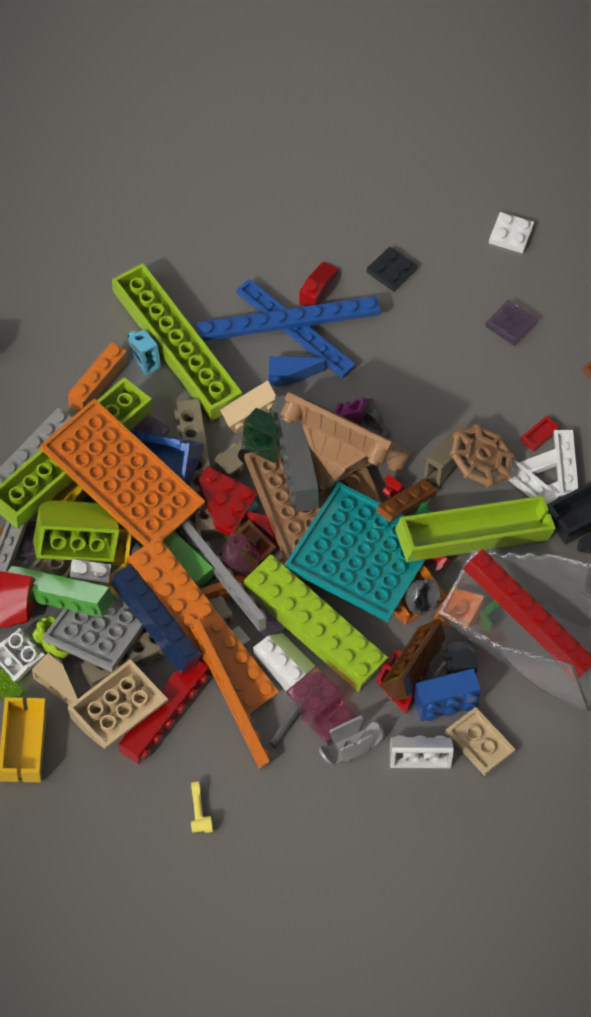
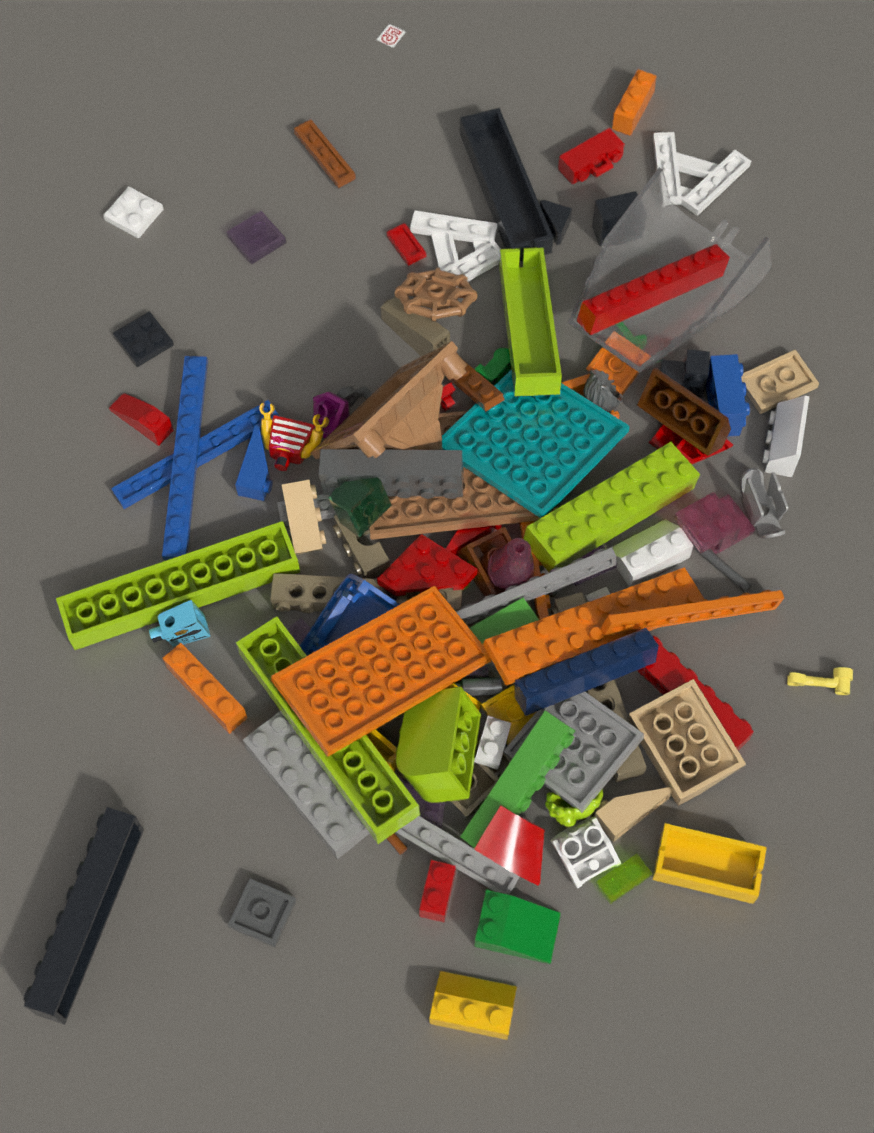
camera: 75 degrees left, 5 degrees up
(323, 384) = (290, 439): none -> torso

